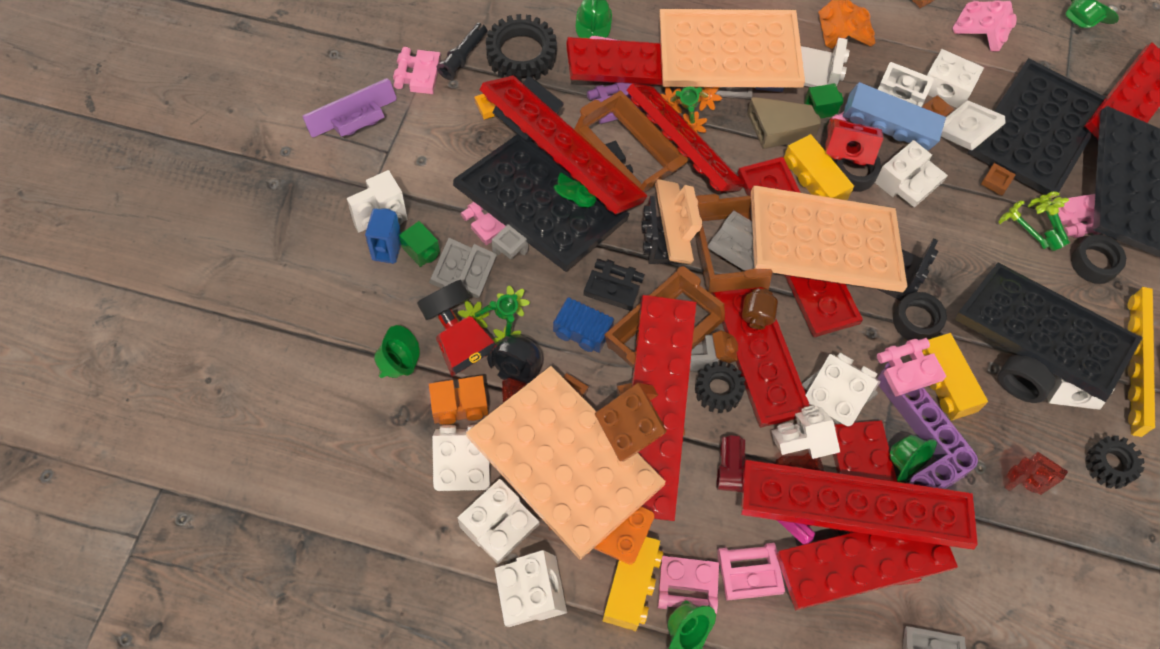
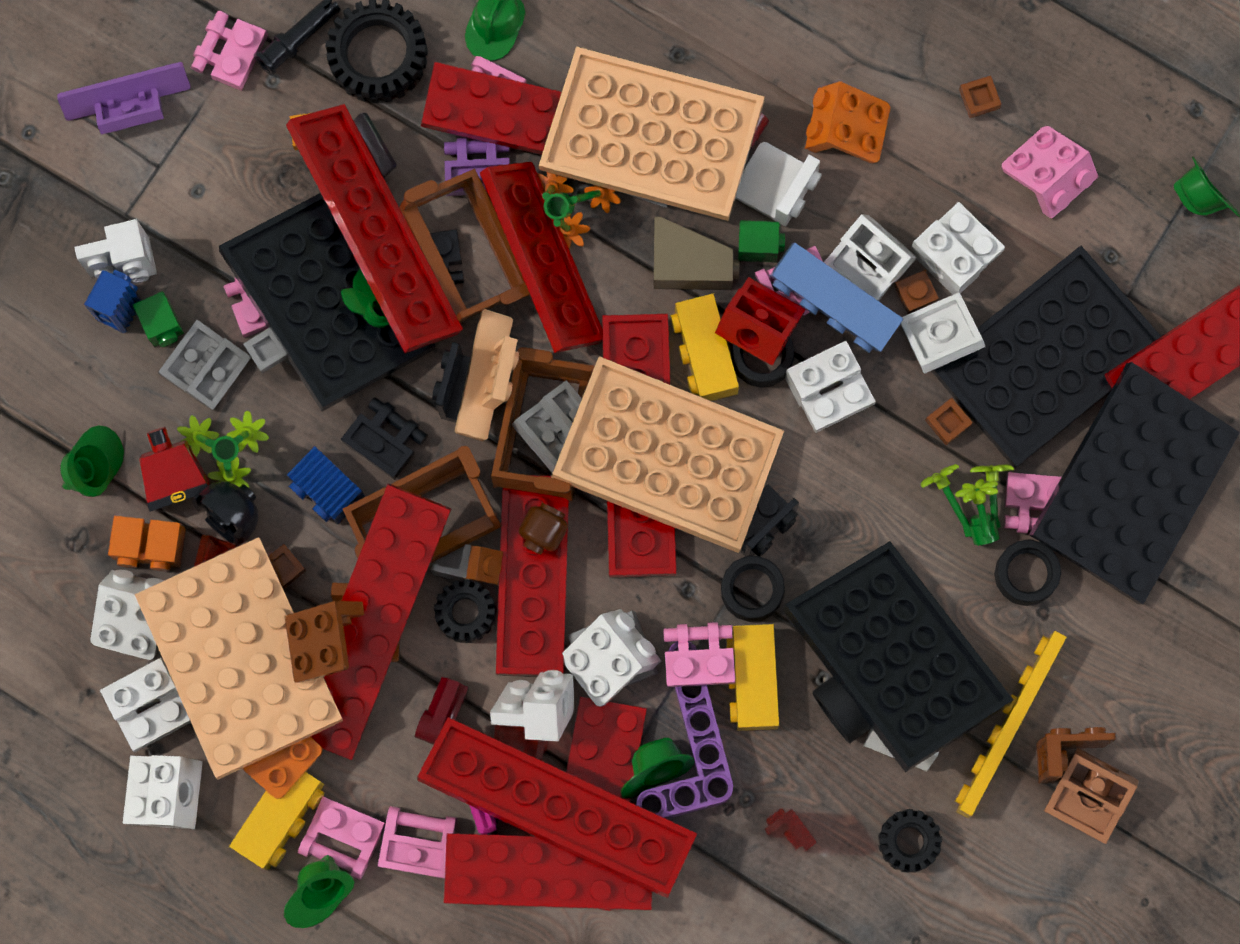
camera: 25 degrees right, 15 degrees up
(443, 299) = (162, 409): black tyre -> none

